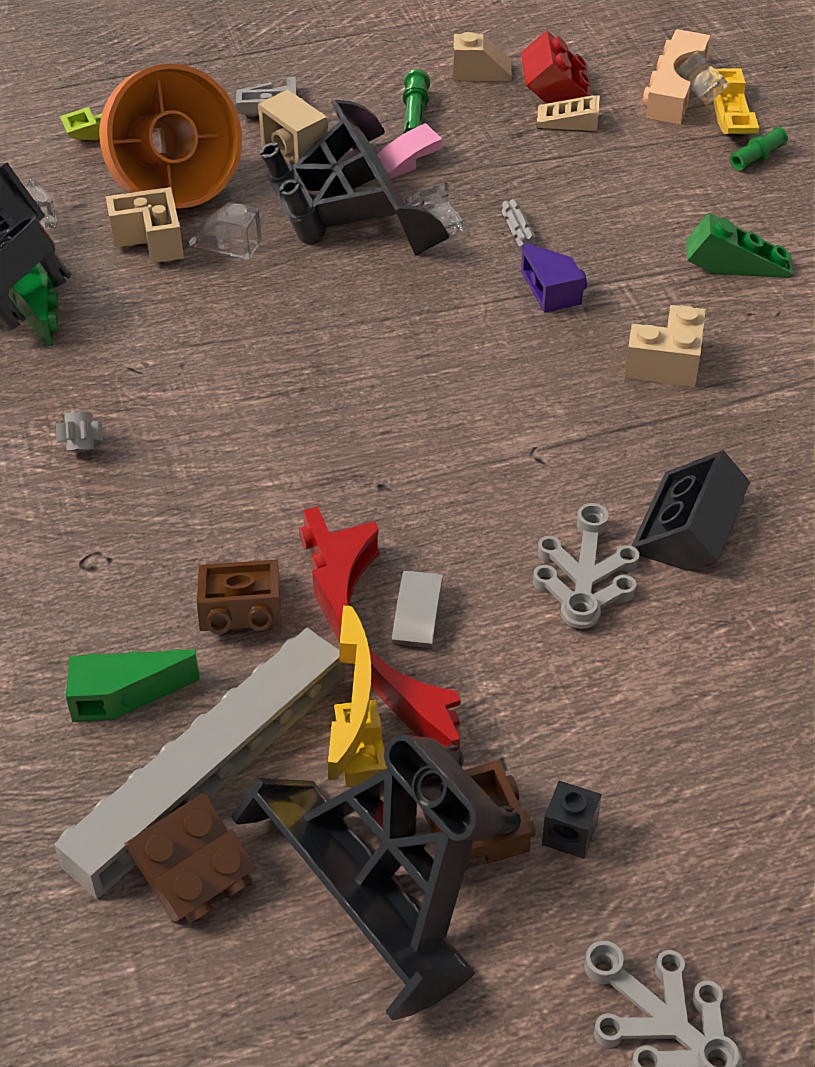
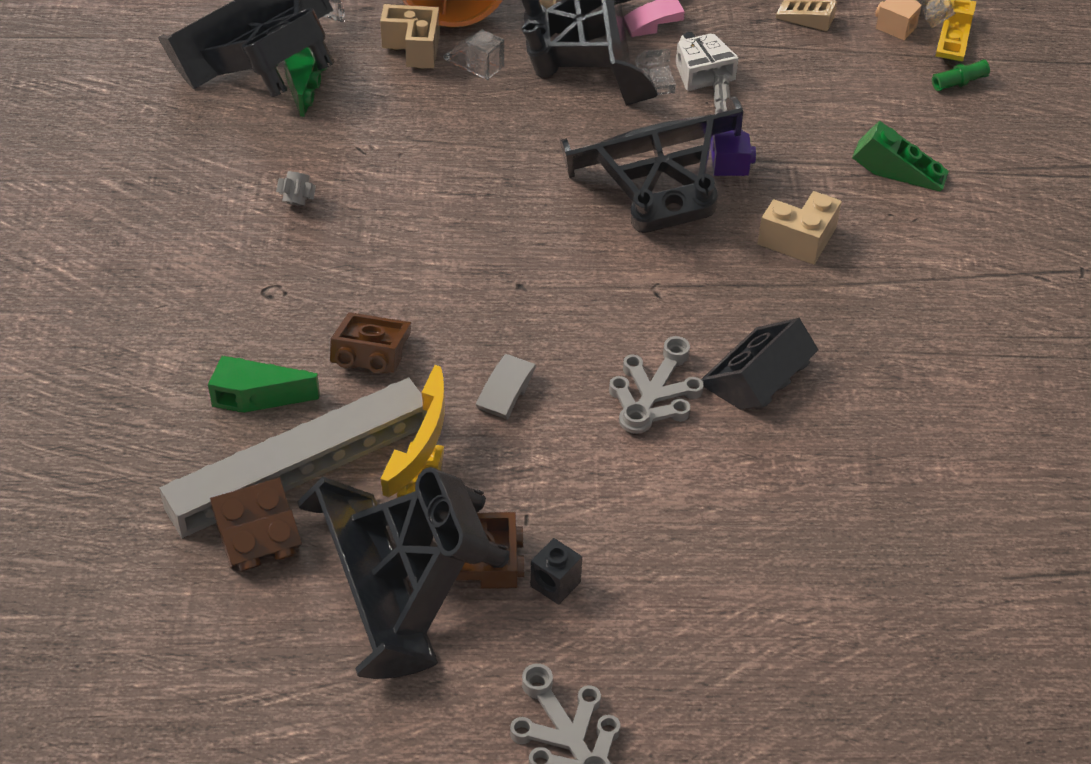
camera: 15 degrees right, 0 degrees up
(337, 566) = (455, 341): red slope -> none
(483, 187) = (702, 59): none -> white torso
(498, 367) = (649, 210): none -> black piece

